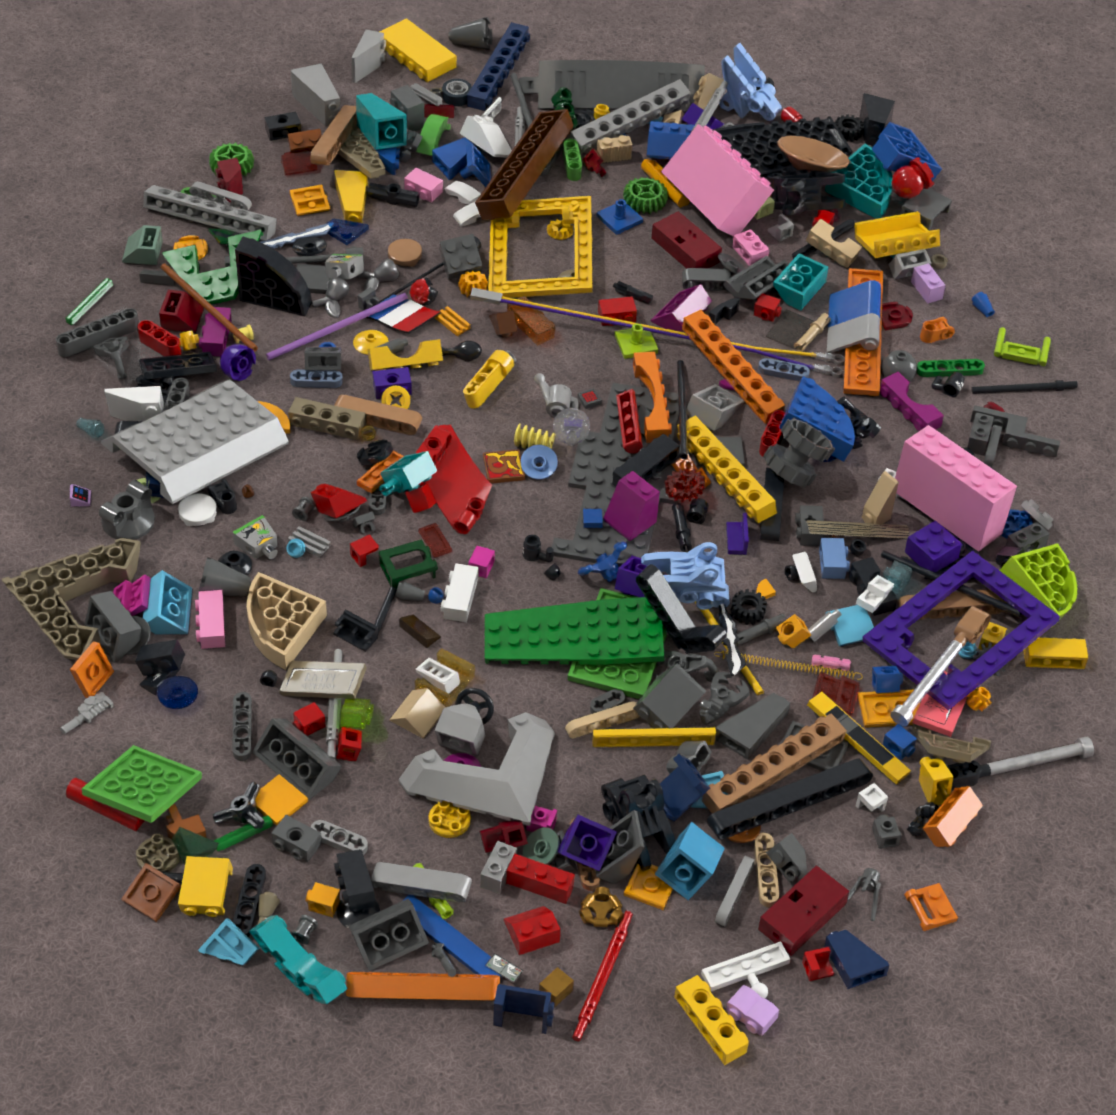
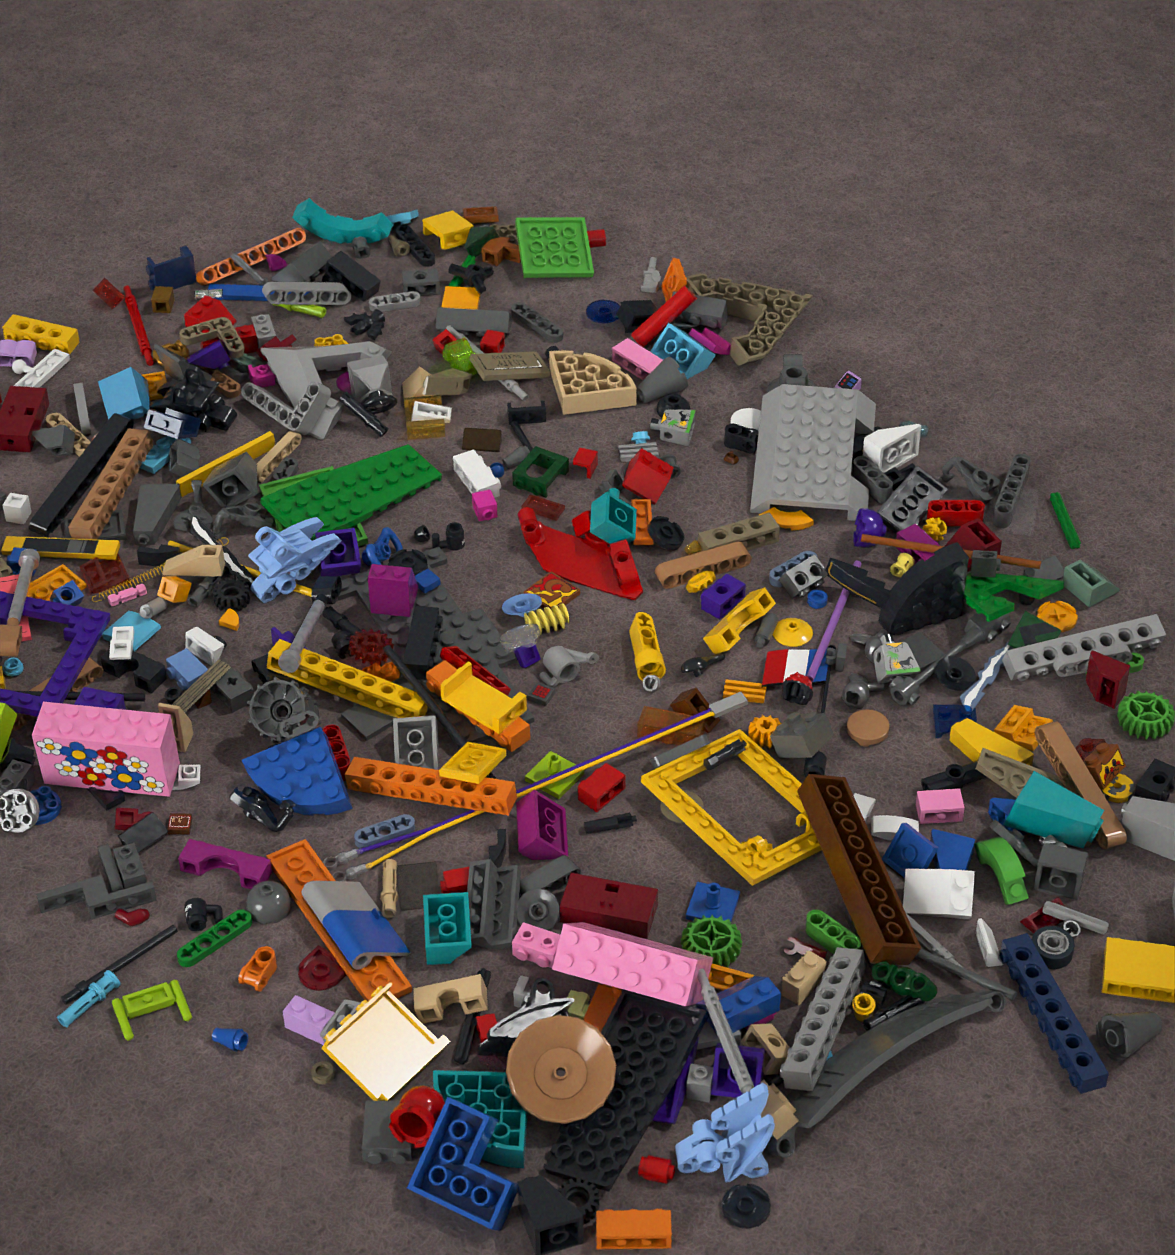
camera: 145 degrees right, 5 degrees down
(151, 620) = (665, 314): none -> red brick
(200, 283) = (985, 563): none -> dark grey brick
(292, 326) = (857, 582): none -> black slope
(323, 899) = (368, 261): light orange brick -> none
(386, 824) = (364, 322): none -> black animal
(394, 689) = (447, 383): none -> dark tan slope
(402, 966) = (275, 262): none -> magenta tile
(499, 705) = (369, 419): none -> black pin
(521, 272) = (724, 754): none -> black piece
(543, 290) = (679, 751): none -> dark grey beam
(550, 865) = (218, 331): none -> dark tan beam
(562, 752) = (299, 419): none -> light grey beam
(593, 541) = (412, 559): none -> black tile
(604, 1030) = (108, 293): none -> clear red brick
(650, 377) = (481, 700): none -> yellow panel
(674, 616) = (243, 531): black beam -> none
(685, 542) = (323, 592): none -> flat silver piece
(695, 352) = (472, 762): none -> yellow tile
(763, 631) = (200, 561): none -> tan slope
(777, 674) = (156, 557): none -> black slope
(804, 416) = (296, 720): none -> dark grey beam
(830, 100) = (633, 1229): none -> orange brick
(899, 575) = (115, 674): clear light blue brick -> none
(1052, 374) = (96, 992): none -> medium azure pin

